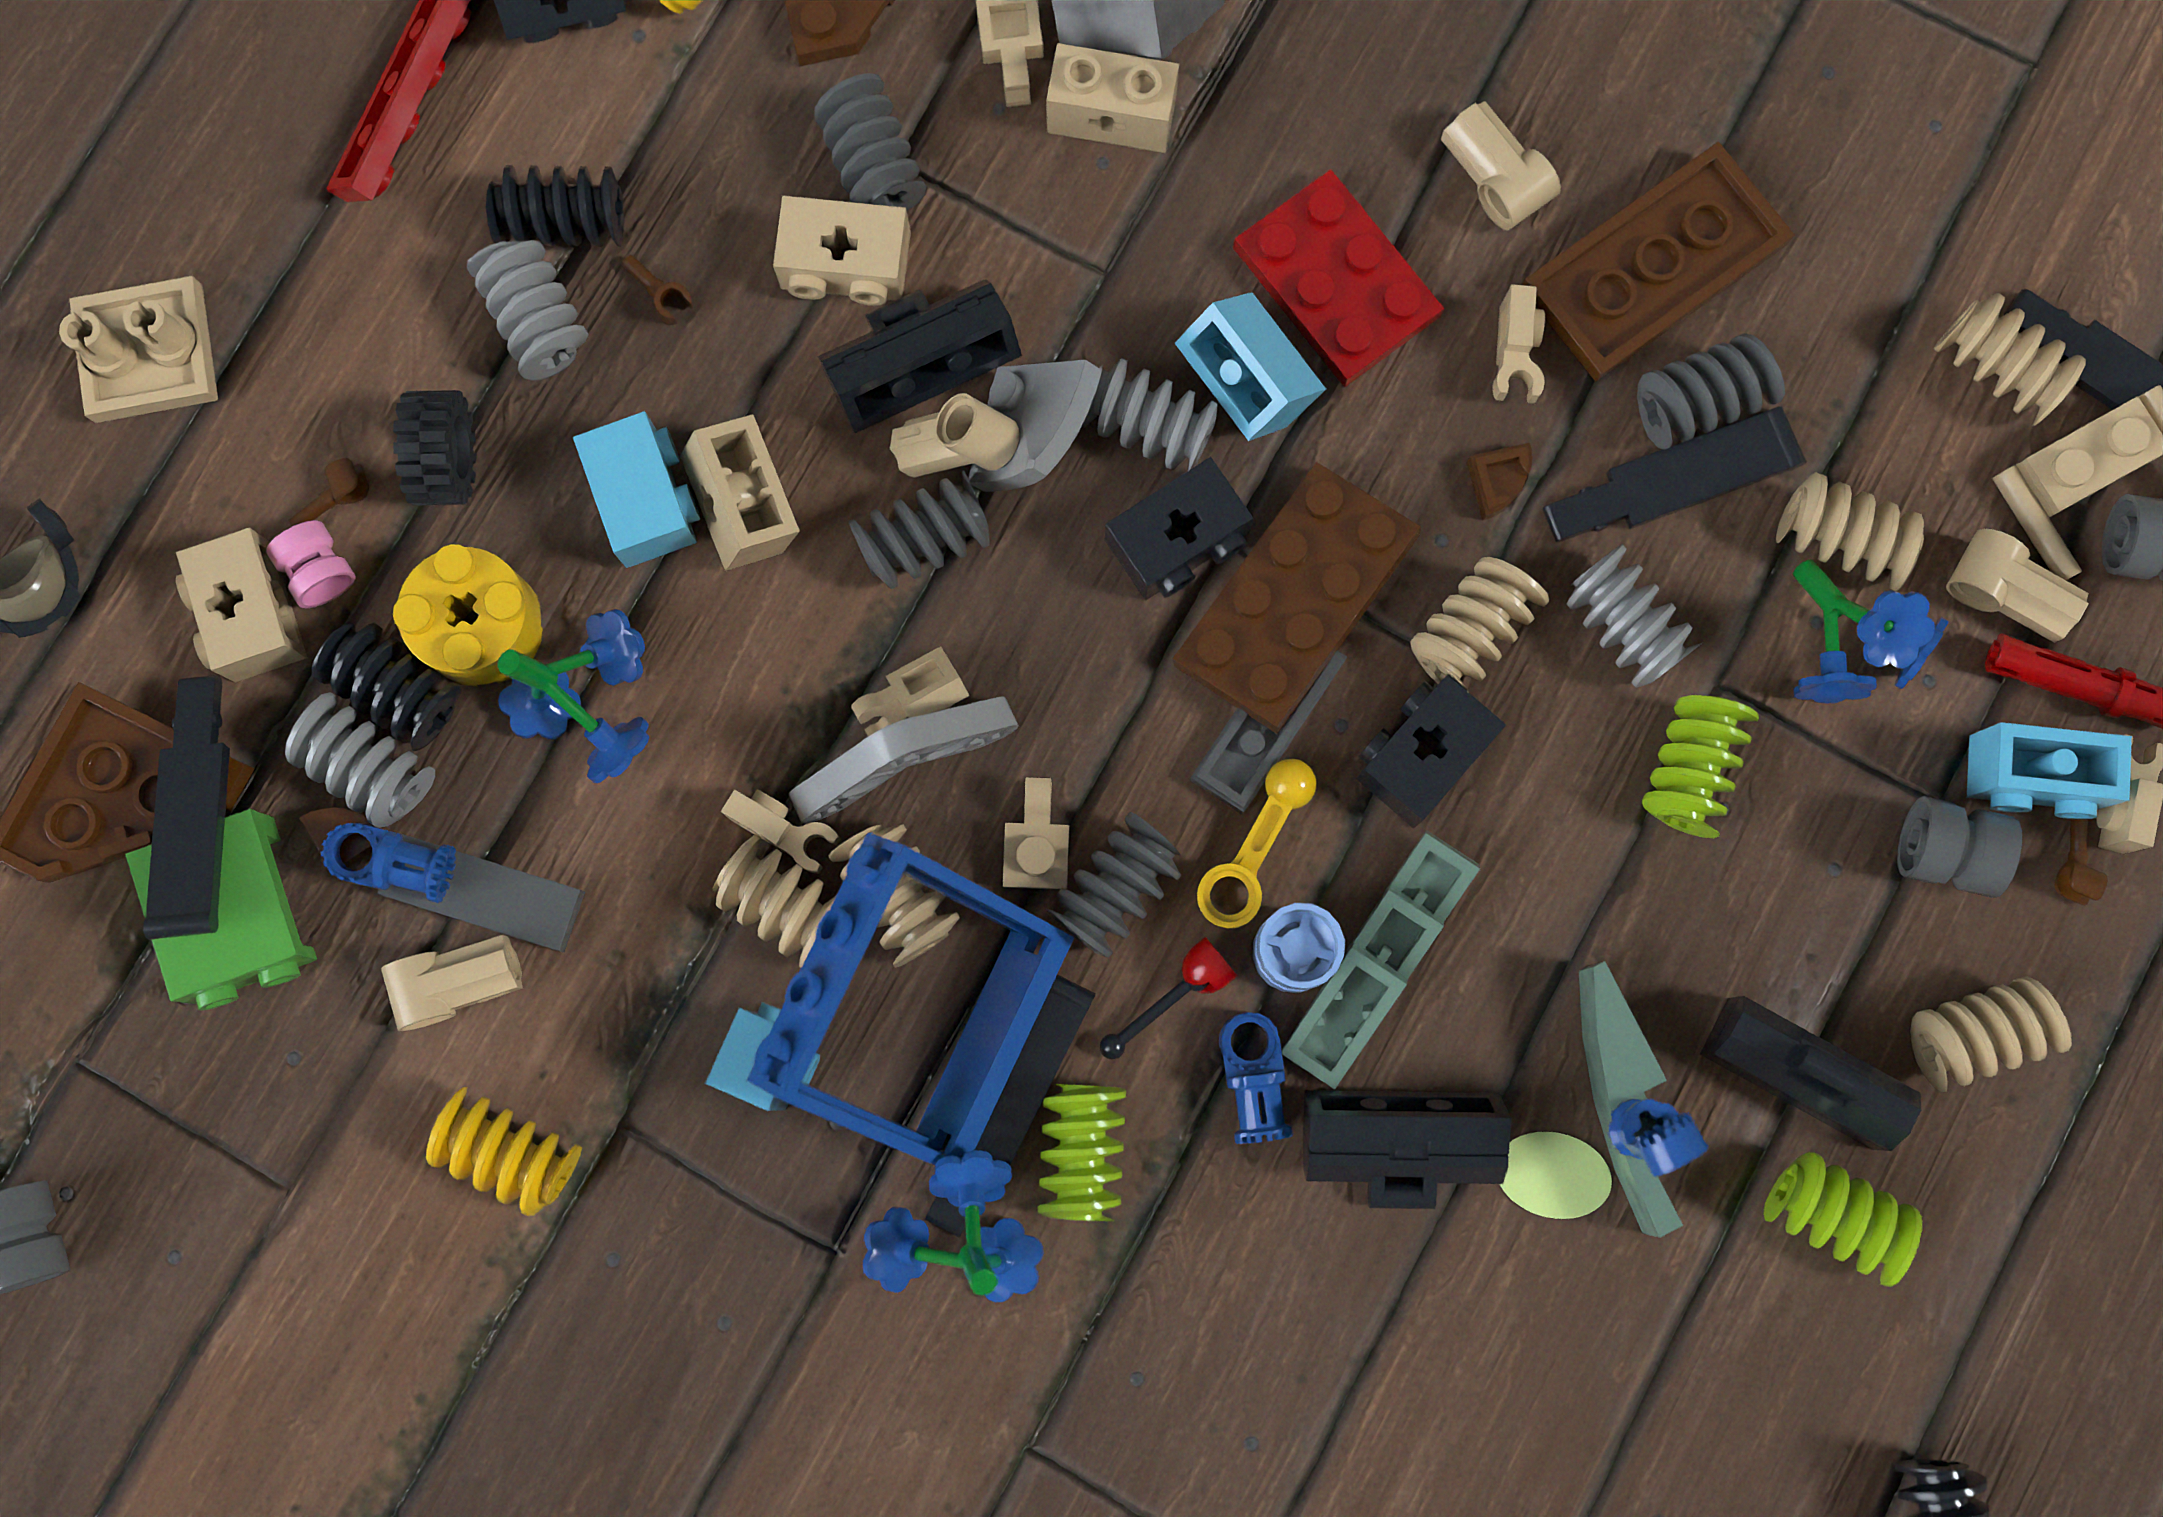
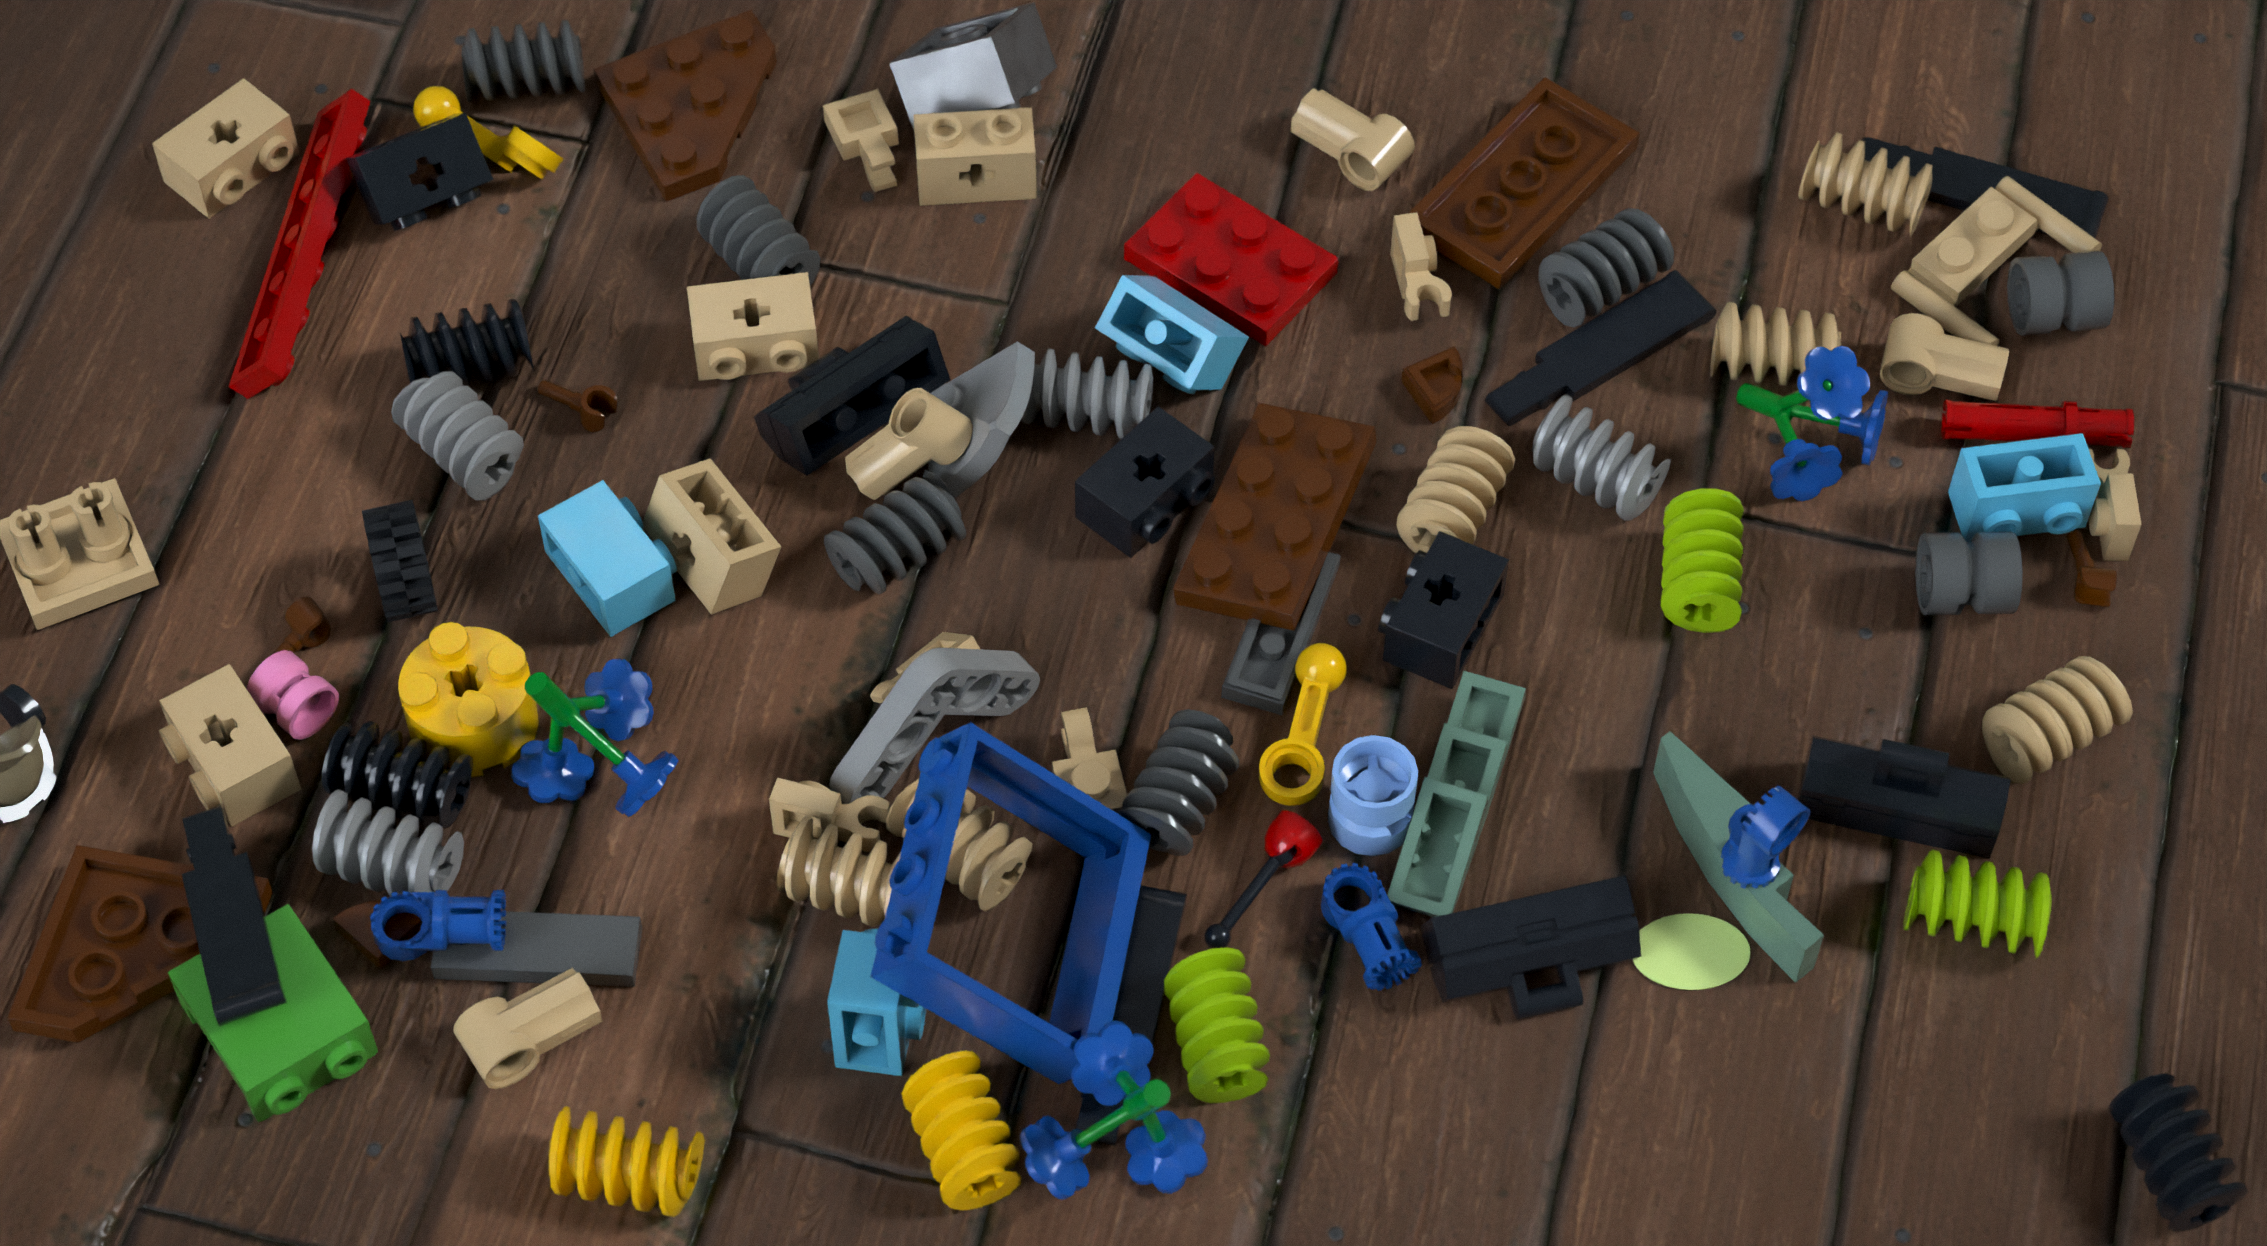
camera: 15 degrees left, 25 degrees down
(817, 1201) = (961, 1131): none -> yellow piece

